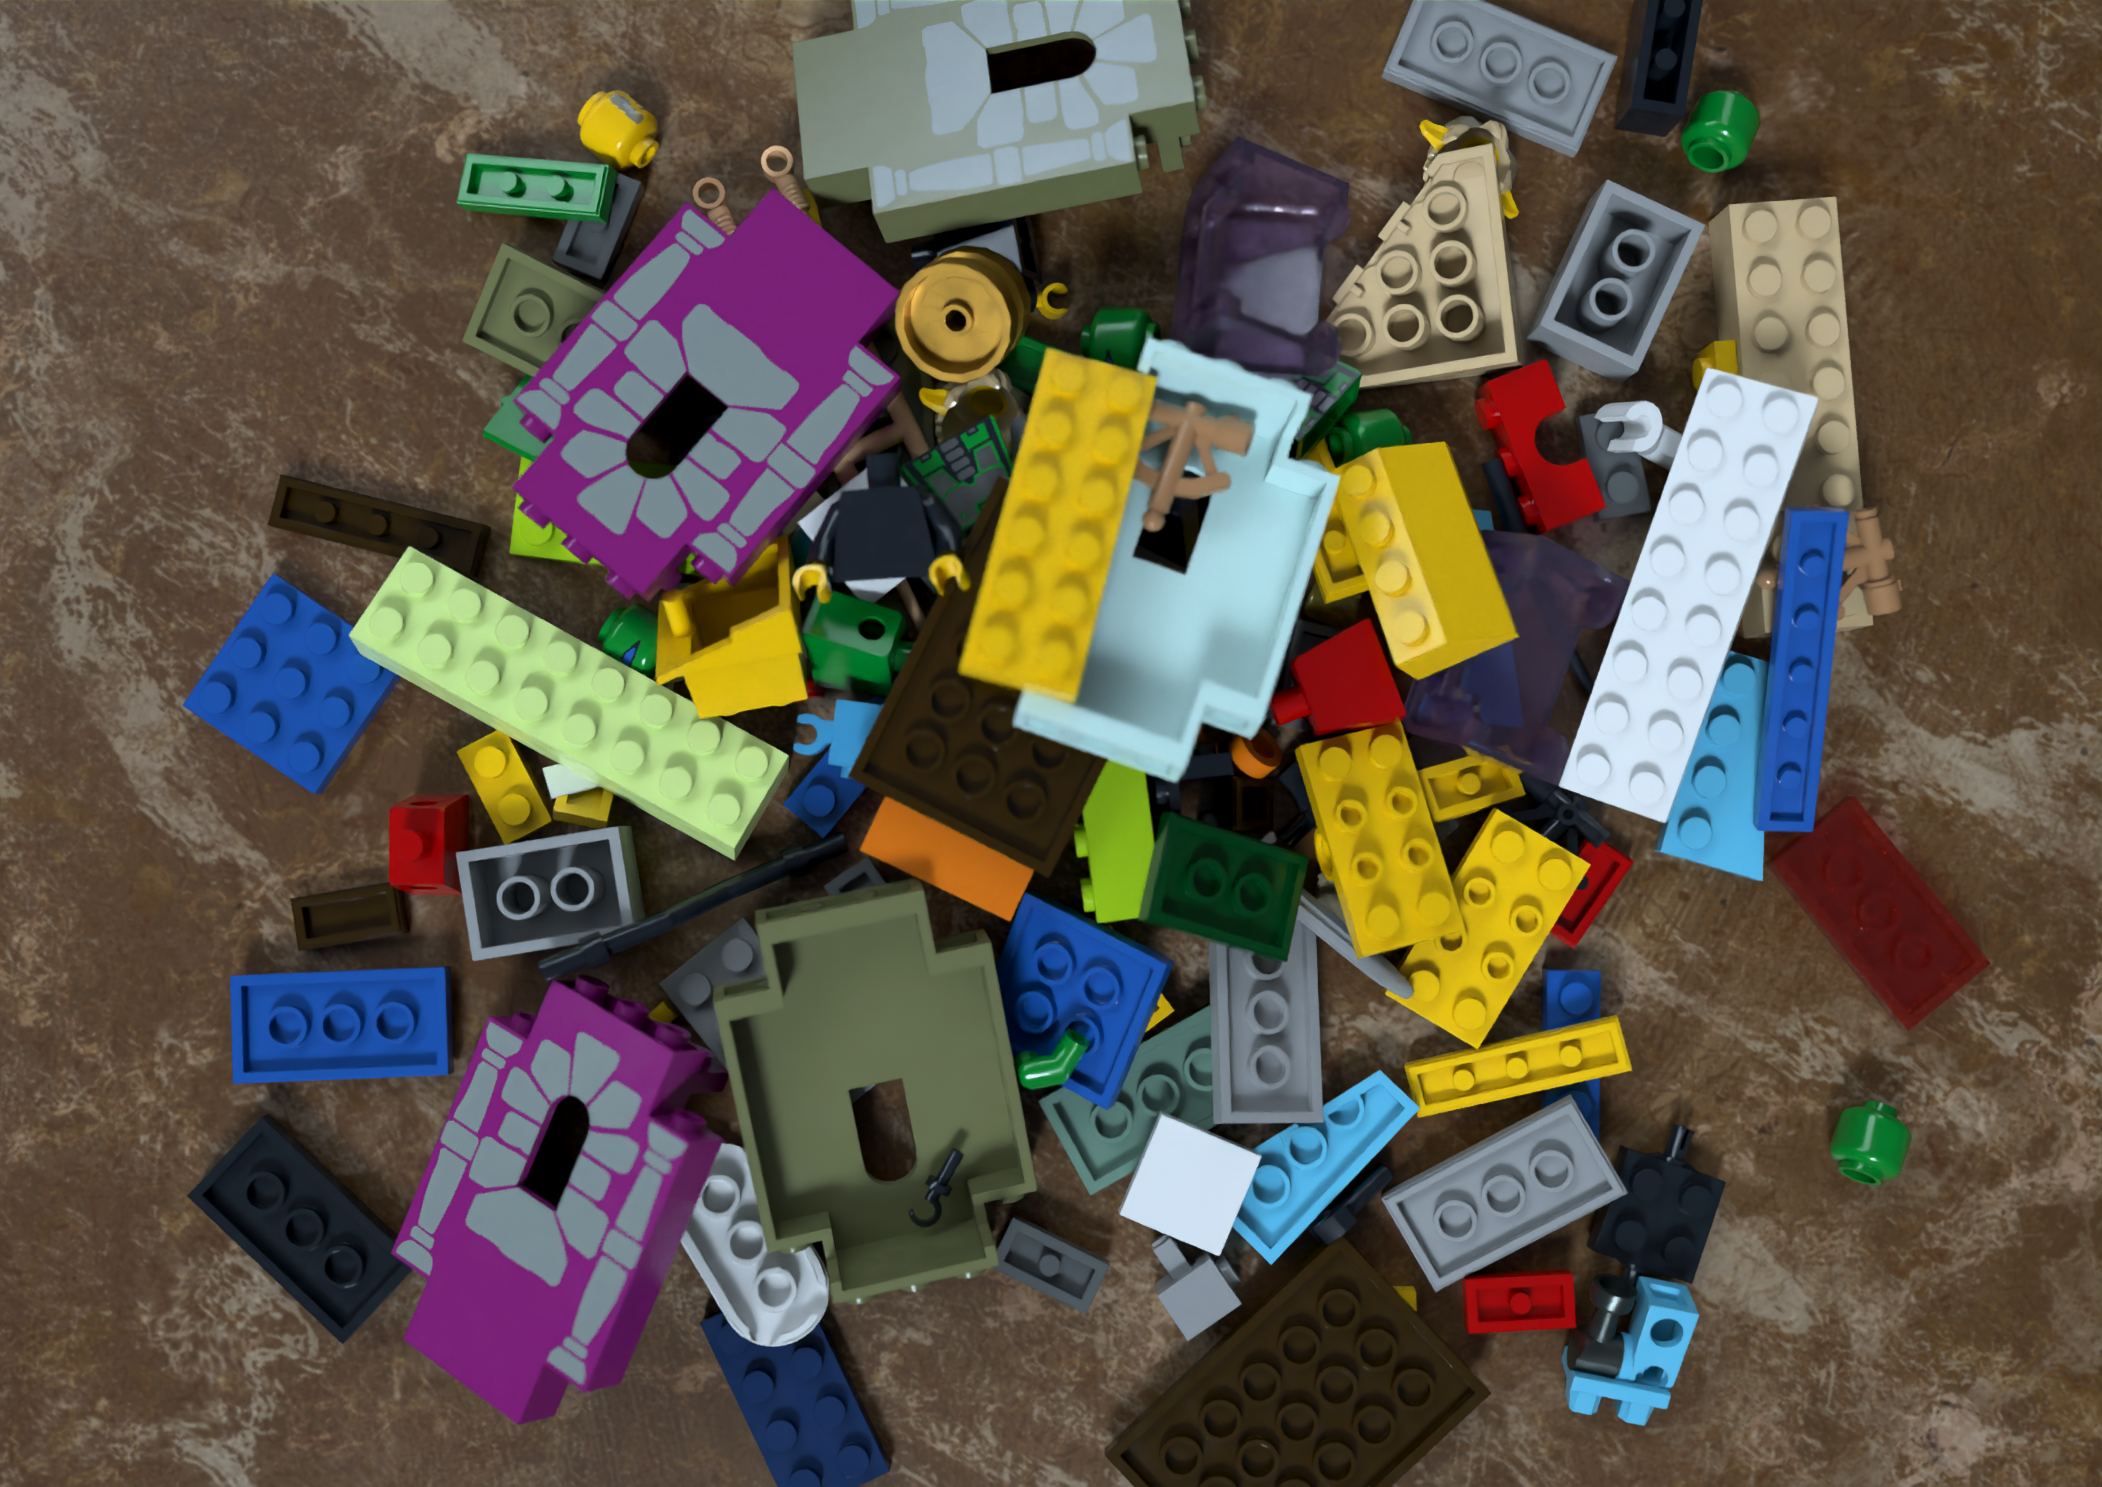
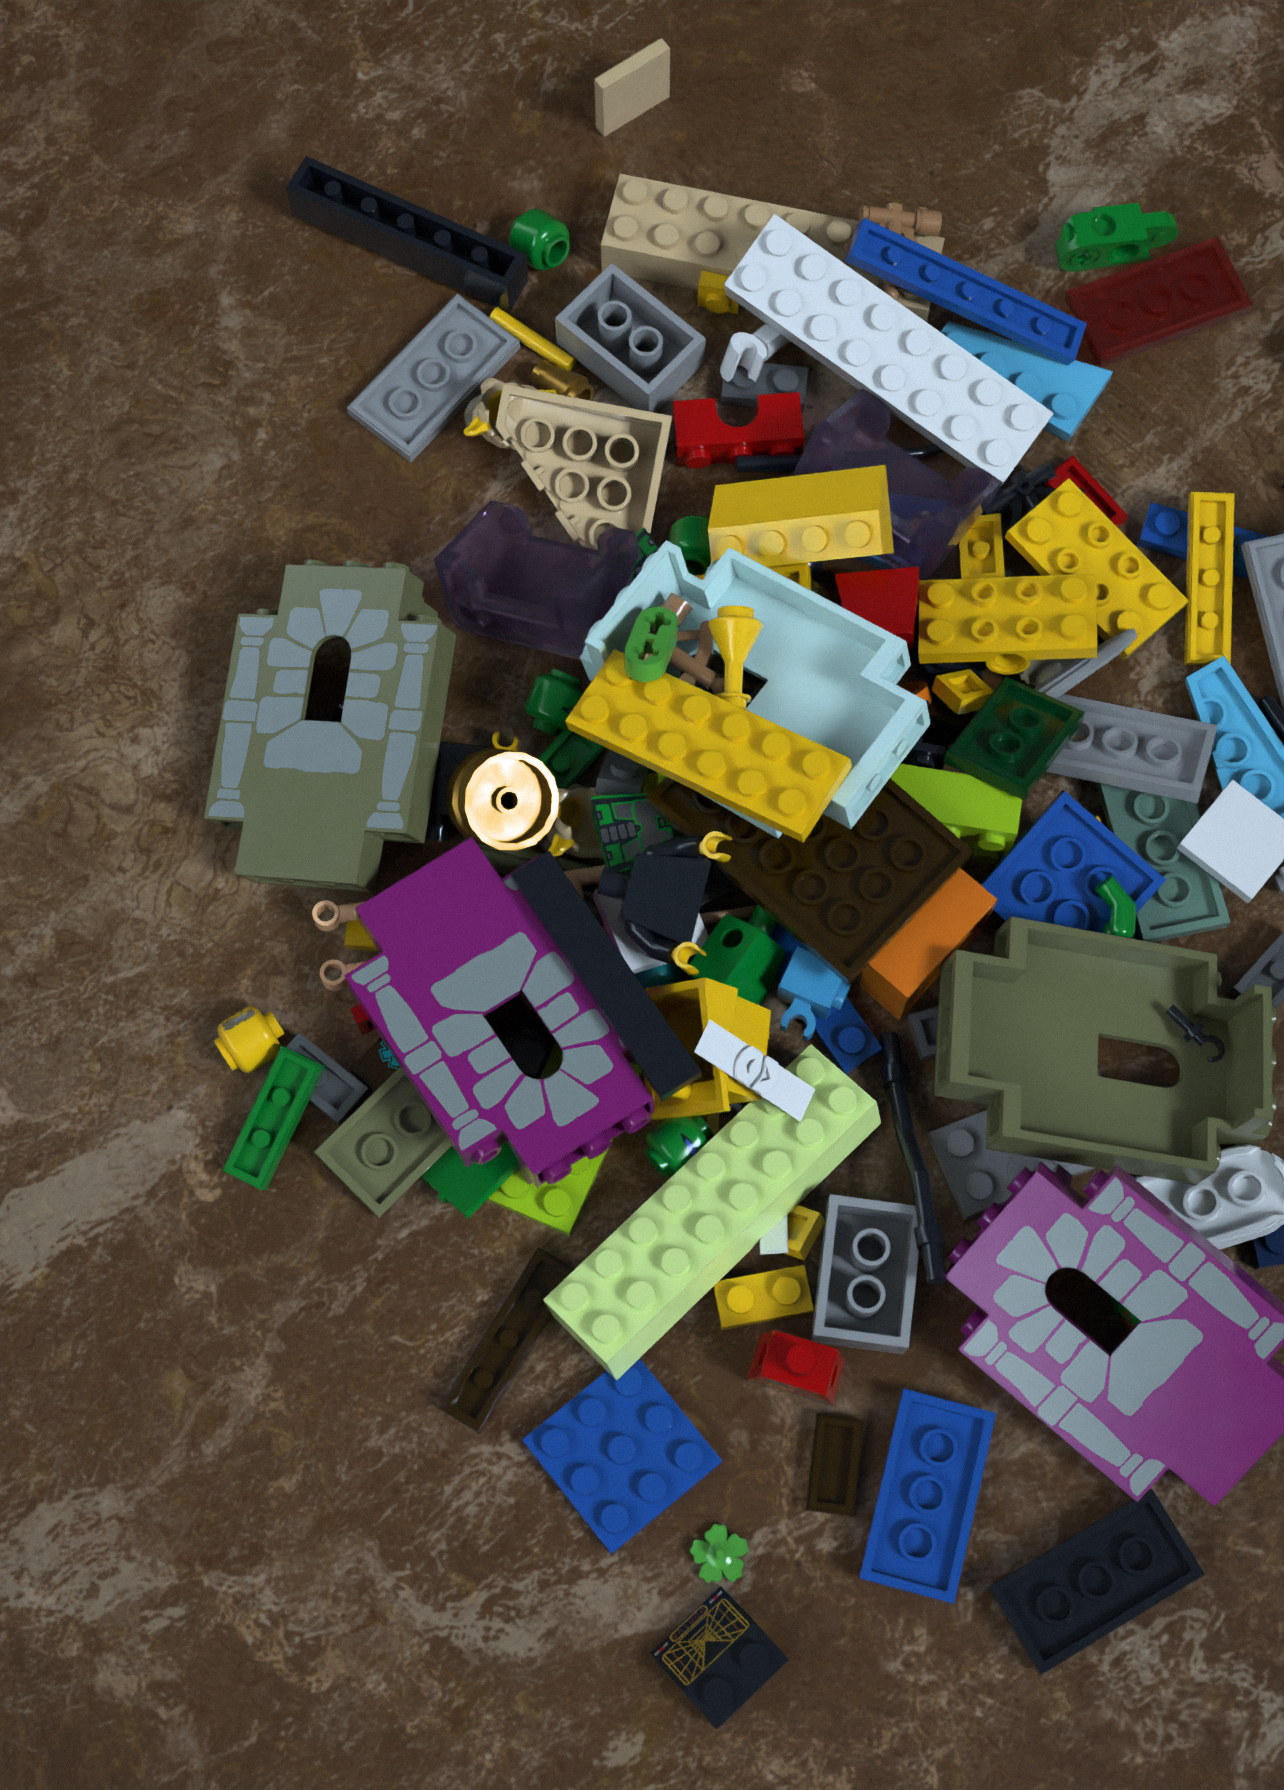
camera: 70 degrees left, 15 degrees down
(105, 852) = (719, 1657): none -> black slope
(221, 820) = (719, 1554): none -> bright green plant
(714, 699) = (754, 1070): none -> white piece
(769, 495) = (606, 976): none -> black tile
(1169, 406) = (659, 645): none -> bright green beam
(1213, 517) = (734, 635): none -> yellow piece
(1277, 811) = (962, 691): none -> yellow plate
(1532, 229) = (563, 381): none -> pearl gold cone
(1585, 168) = (533, 340): none -> yellow piece
(1948, 833) = (1112, 237): none -> green piece
(1967, 175) = (632, 87): none -> tan tile

